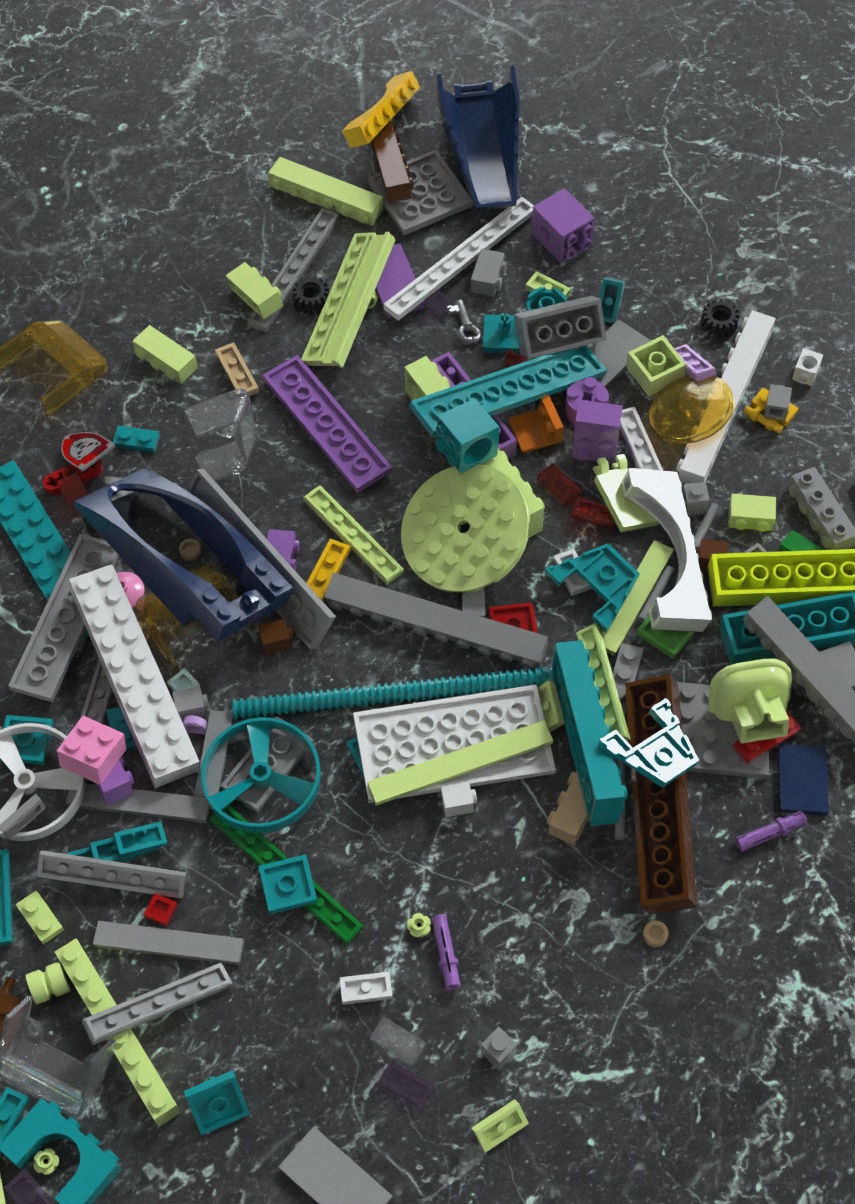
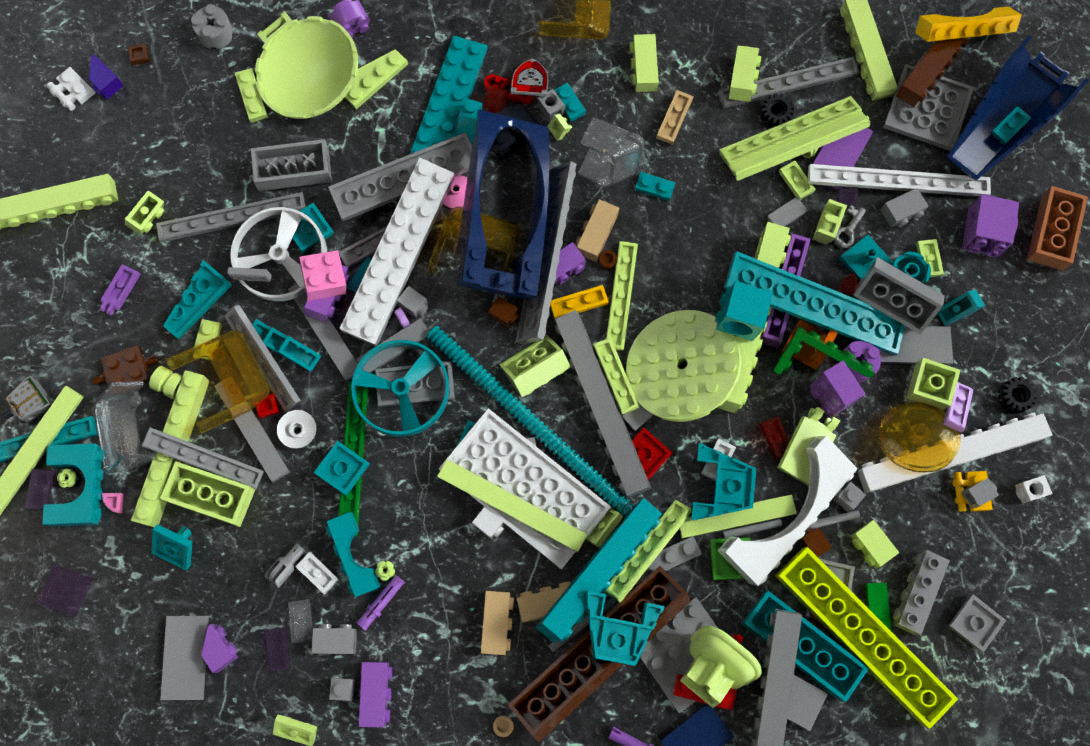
camera: 45 degrees right, 15 degrees up
(66, 523) = (467, 118): none -> teal slope
(103, 906) = (236, 371): none -> clear yellow windscreen
(113, 1134) = (113, 501): none -> bright pink tile
(131, 456) = (550, 111): none -> light grey brick
(151, 461) = (559, 127): none -> yellowish green tile
(182, 681) = (425, 285): light aqua tile -> none
(190, 550) = (520, 206): tan tile -> none
(196, 1028) = (207, 494): none -> yellowish green brick
(210, 888) = (291, 421): none -> white dish
(275, 503) = (597, 230): none -> tan brick
(281, 433) = (655, 186): none -> teal plate
(309, 520) = (607, 259): none -> reddish brown tile
(327, 424) = (687, 208): medium lavender plate -> none
(331, 1013) = (284, 566): none -> light grey arm
(349, 649) = (535, 366): none -> yellowish green slope
(349, 929) = (360, 578): none -> teal arch
(358, 1141) = (217, 650): none -> medium lavender slope
(386, 327) = (796, 180): none -> yellowish green plate
(407, 353) = (788, 213): none -> light grey tile
(423, 589) = (616, 376): none -> yellowish green tile
(445, 1021) = (334, 640): none -> light grey brick
(447, 330) = (829, 222): none -> yellowish green window
(493, 150) = (1010, 125): none -> teal plate
(529, 1023) = (374, 694): none -> medium lavender brick
(530, 431) = (829, 348): none -> green bracket
(556, 863) = (496, 623): none -> tan brick
(559, 484) = (779, 395): clear red tile -> none
(609, 186) = (1057, 228): none -> nougat brick
(638, 441) = (861, 422): white tile -> none

